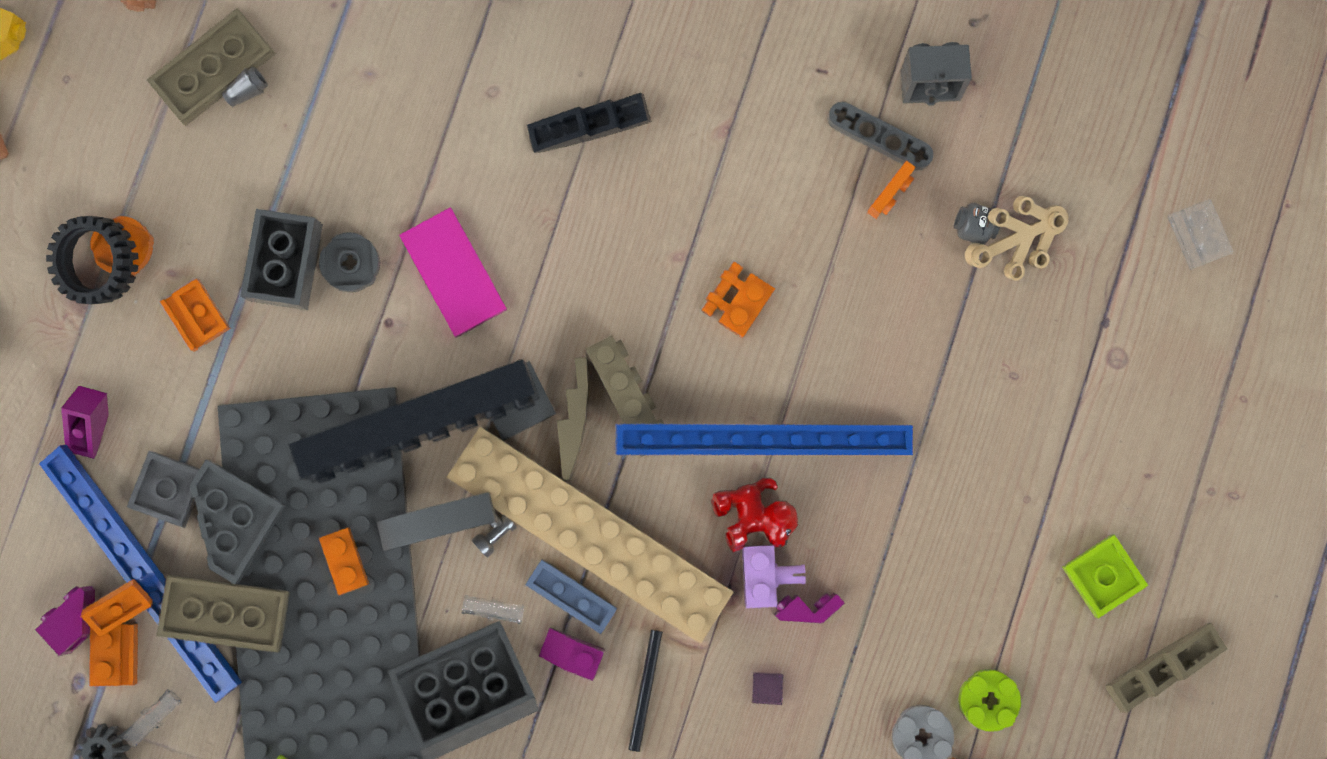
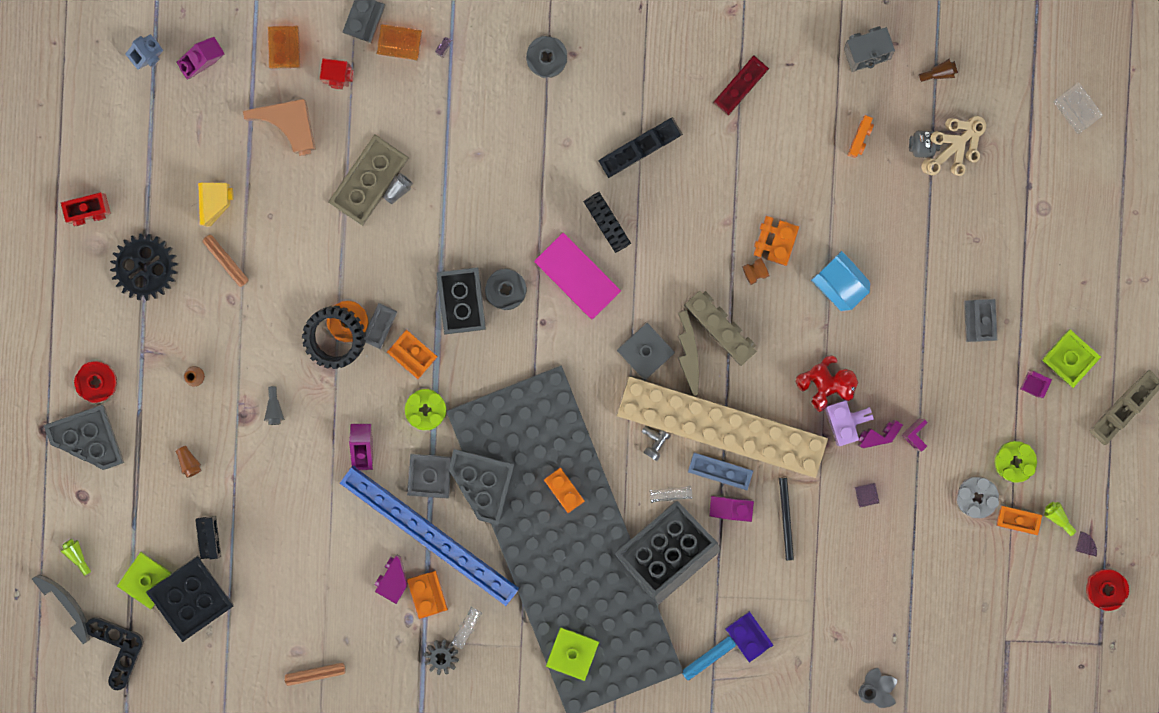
camera: 15 degrees left, 5 degrees up
(116, 608) = (424, 562): orange plate -> none
(163, 264) = (380, 325): none -> flat silver plate
(179, 383) = (433, 401): none -> lime plate
(223, 613) = (495, 546): dark tan tile -> none
(415, 421) = (587, 385): black brick -> none
(436, 521) = (619, 447): dark grey slope -> none
(510, 205) = (607, 222): none -> black tyre
(698, 332) = (755, 271): none -> dark orange wheel
(748, 79) = (741, 85): none -> dark red tile
(762, 439) = (821, 332): blue plate -> none
(813, 381) = (842, 283): none -> dark azure slope
(853, 626) = (911, 437): none -> magenta panel
(882, 131) = (842, 100): dark grey beam -> none
(991, 487) = (980, 320): none -> flat silver plate
(1029, 134) = (943, 71): none -> reddish brown cone
(1047, 598) = (1036, 384): none -> magenta panel

